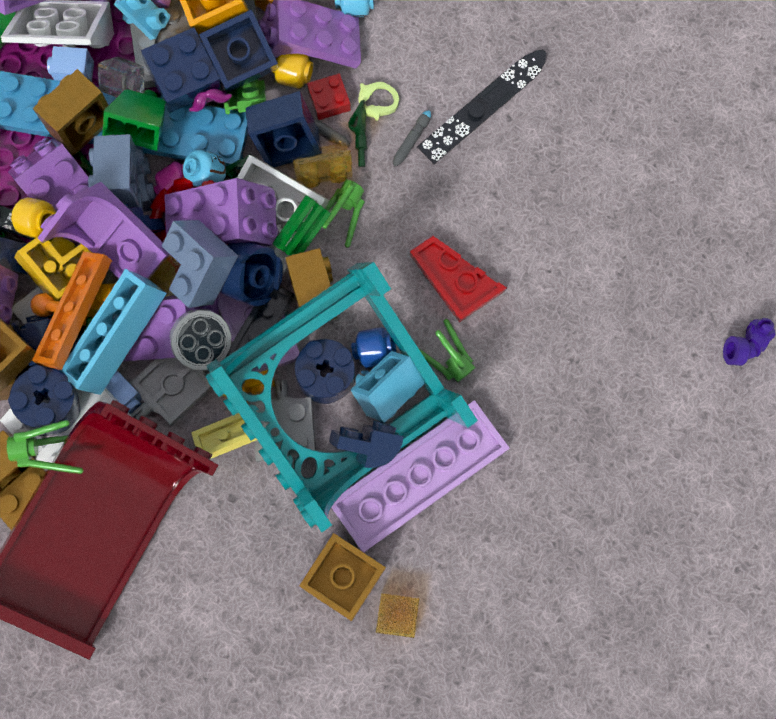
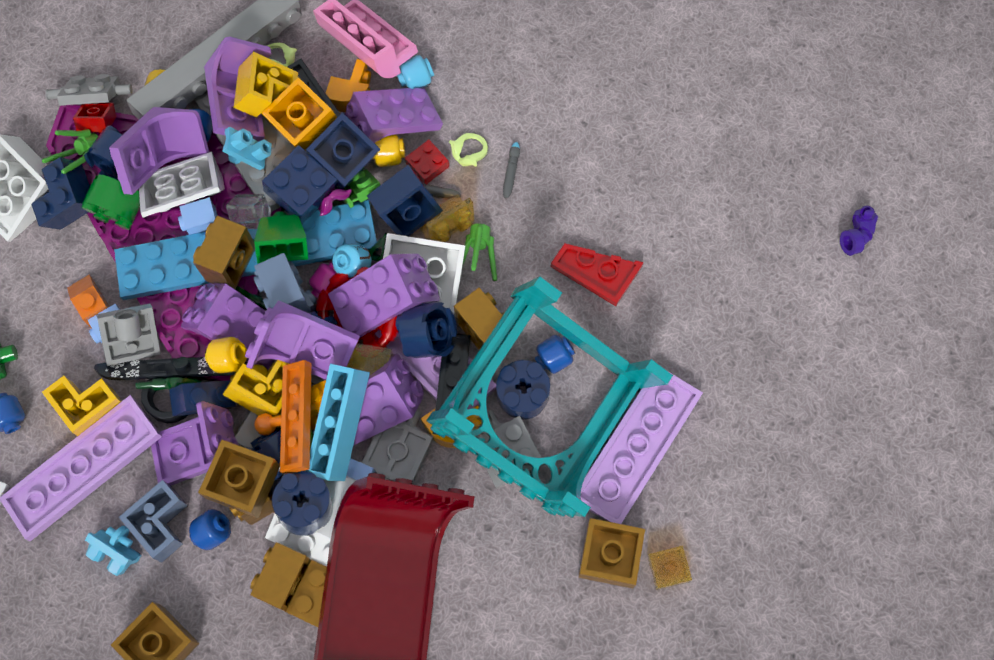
camera: 15 degrees left, 5 degrees down
(25, 445) = (302, 544): bright green plant -> none
(200, 338) = (411, 400): tile -> none
(203, 262) = (391, 334): sand blue brick -> none
(222, 436) = (462, 473): light yellow plate -> none
(304, 230) = (459, 278): green tile -> none
(359, 131) = (465, 181): dark green hand -> none
(374, 446) = (593, 431): dark blue brick -> none
(387, 386) = (581, 380): medium azure brick -> none
(459, 364) = (631, 341): bright green plant -> none
(482, 106) = (558, 122): black piece -> none

